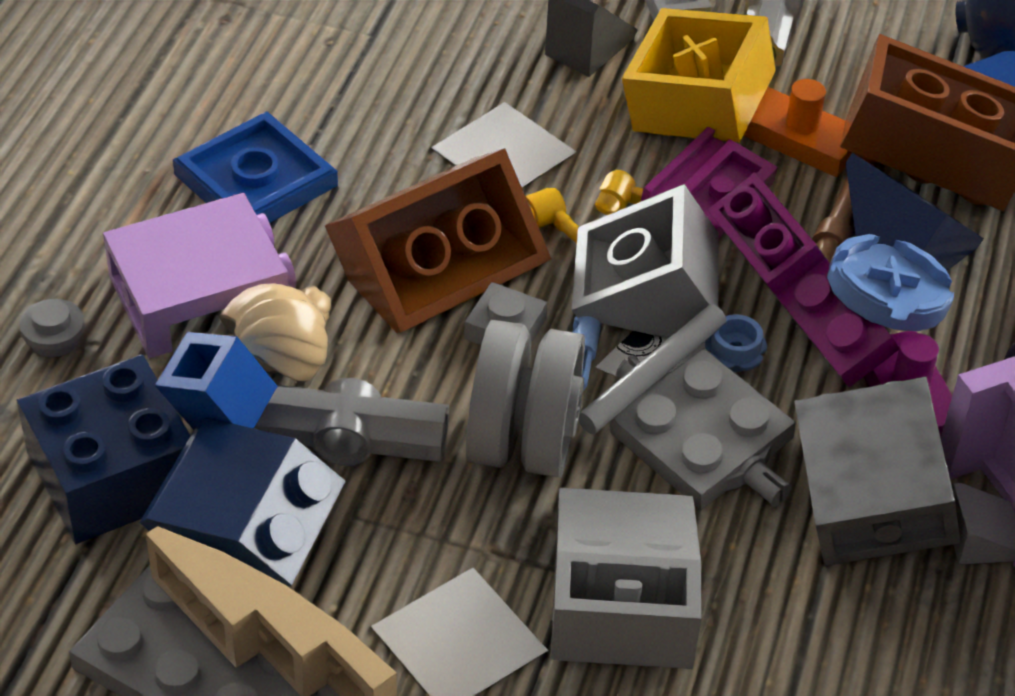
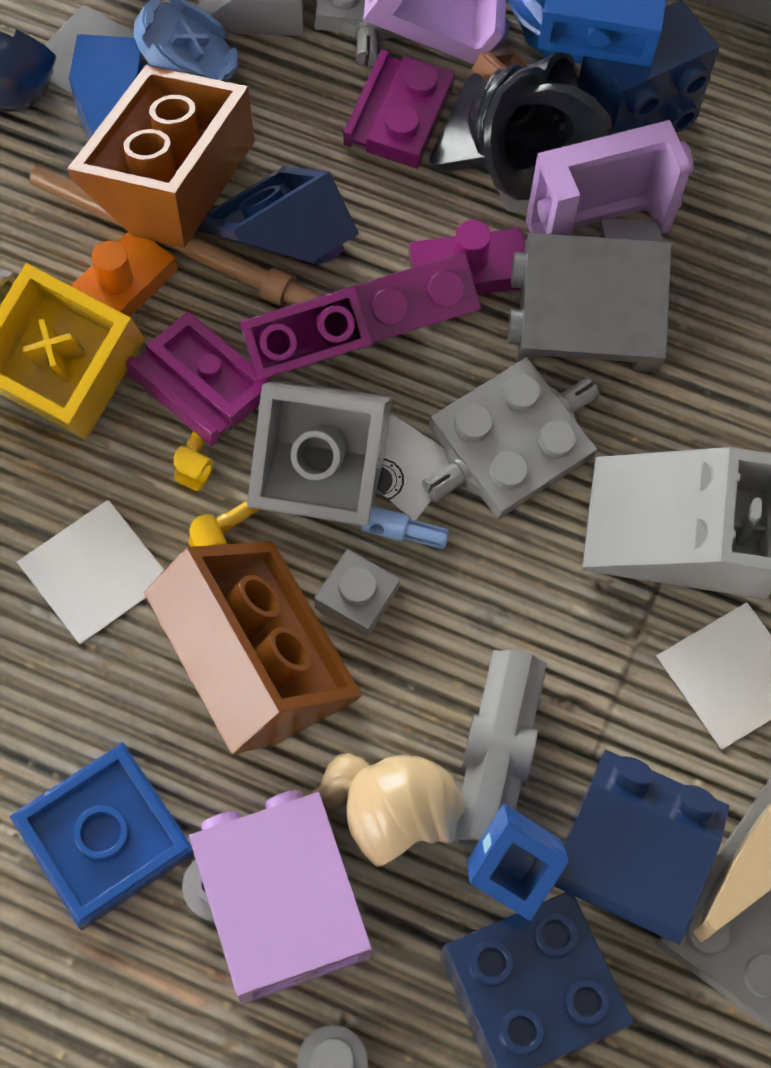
camera: 85 degrees left, 20 degrees up
(515, 397) = (517, 571): light grey wheel -> none
(651, 369) = (459, 463): light grey bar -> none
(738, 343) = (413, 378): medium blue plate -> none
(890, 284) = (395, 239): medium blue tile -> none

